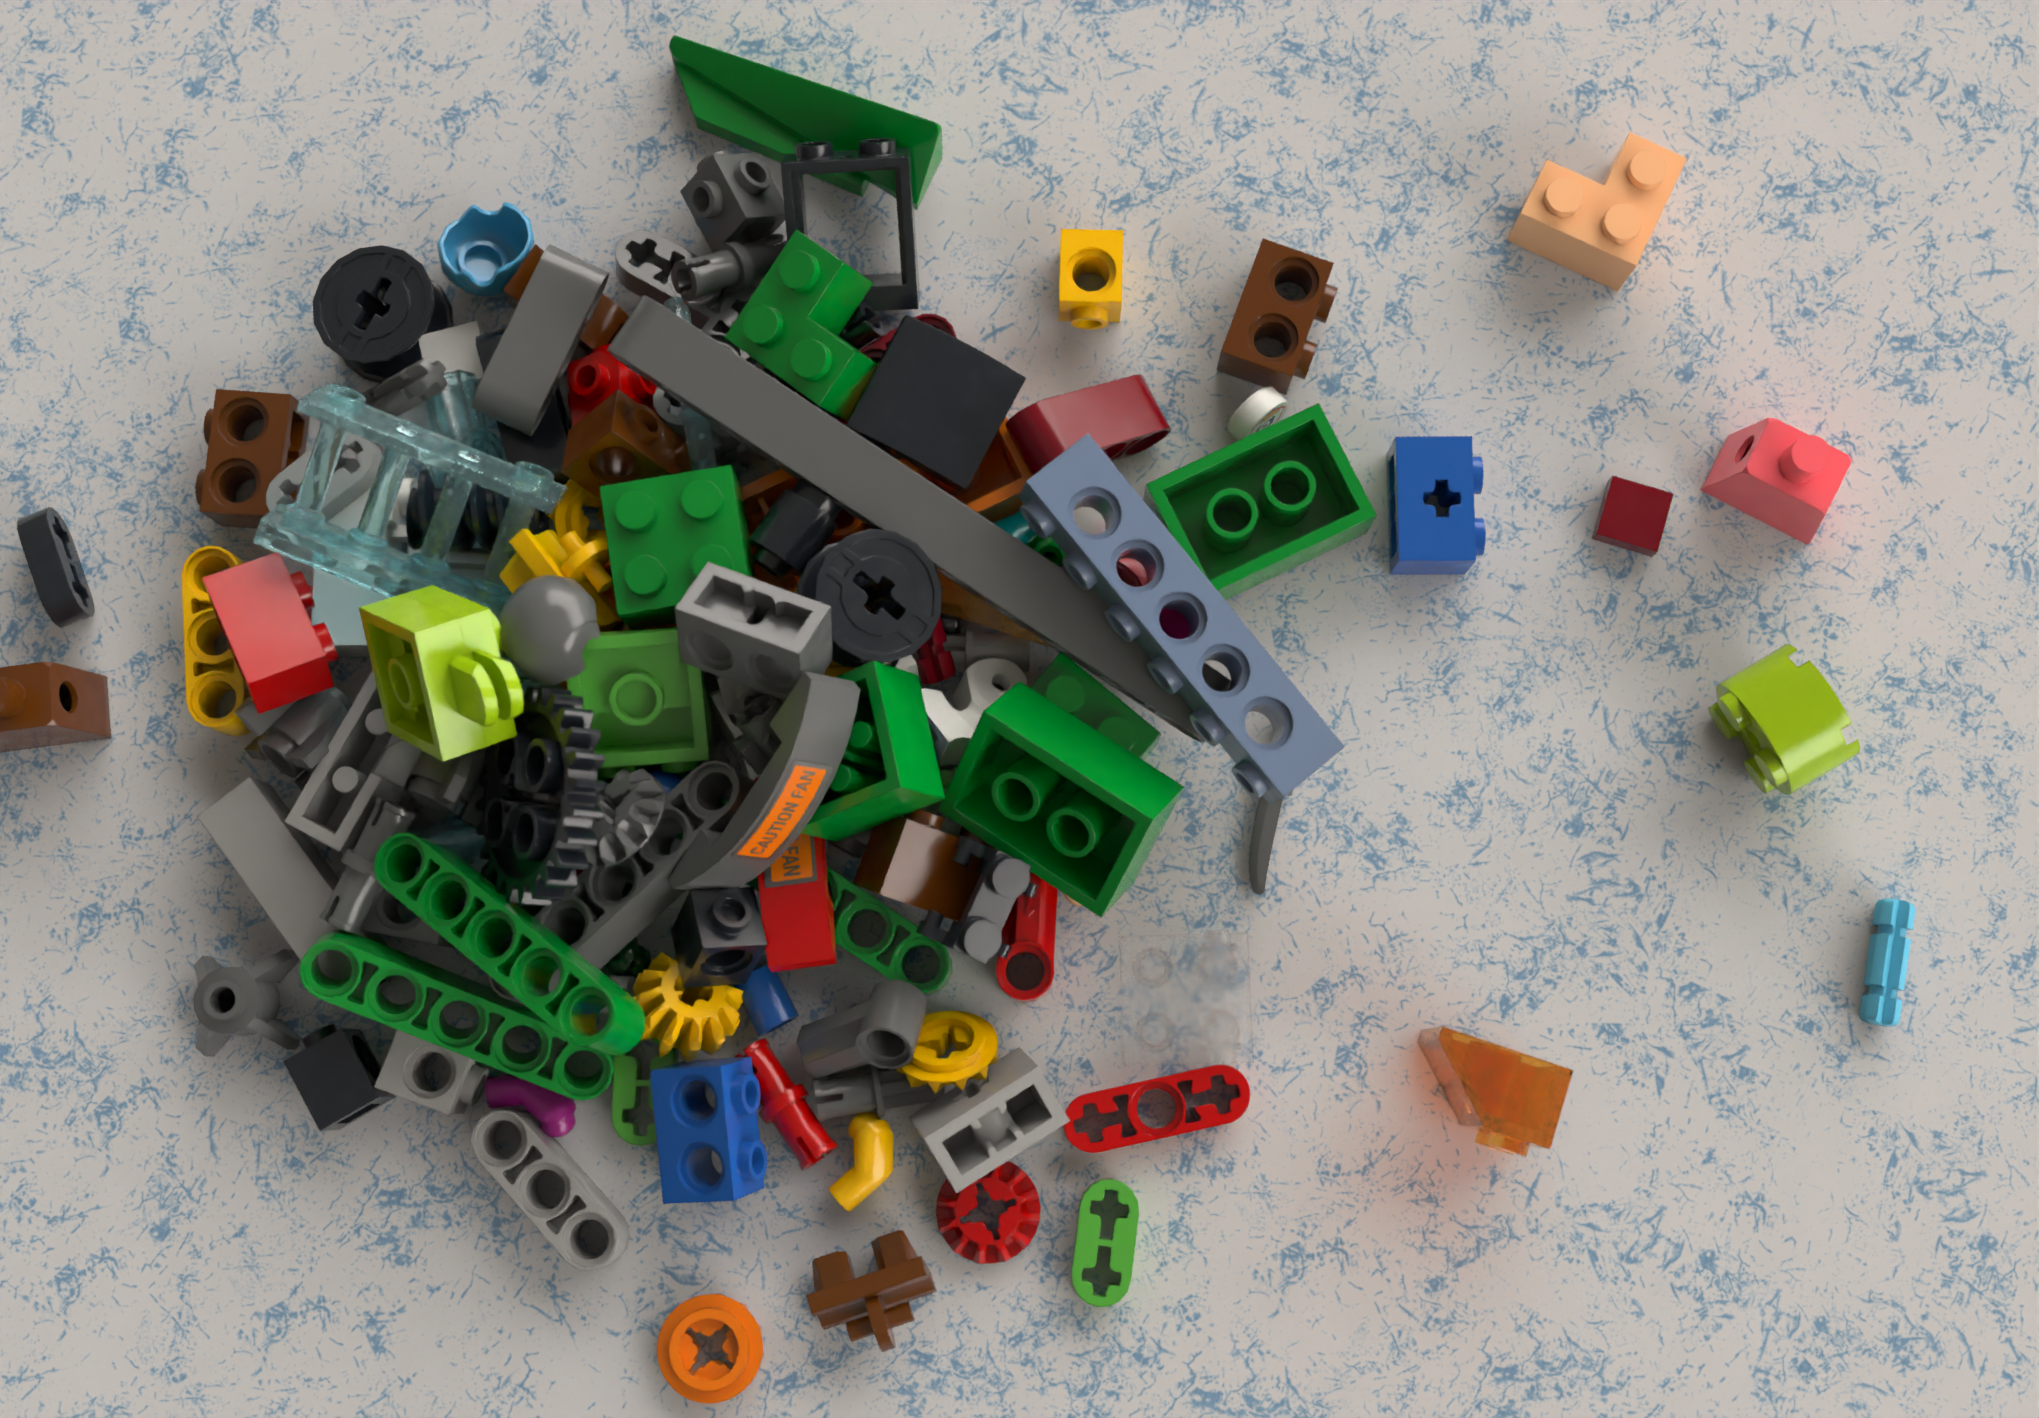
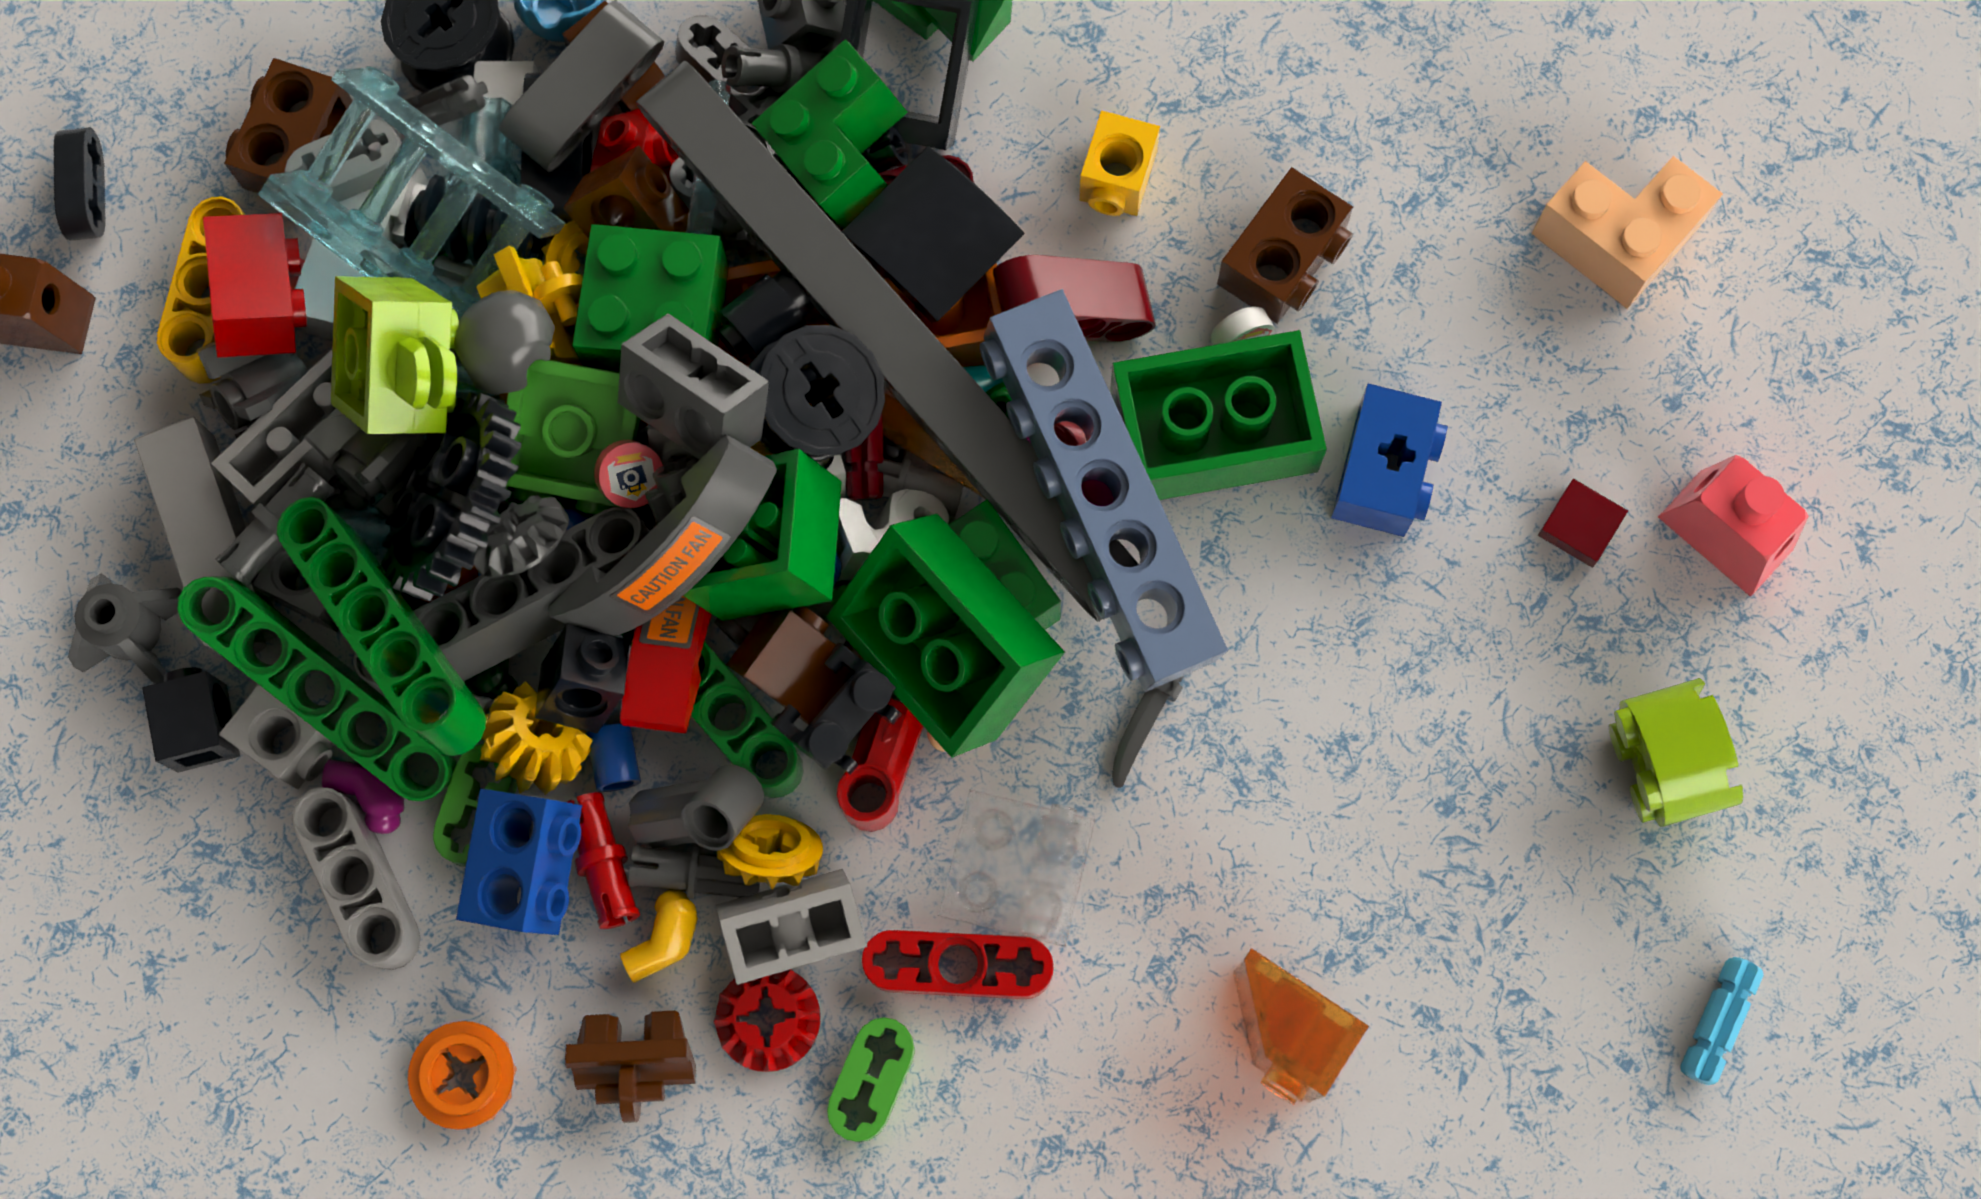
camera: 15 degrees right, 5 degrees down
(707, 726) = (626, 472): none -> tile

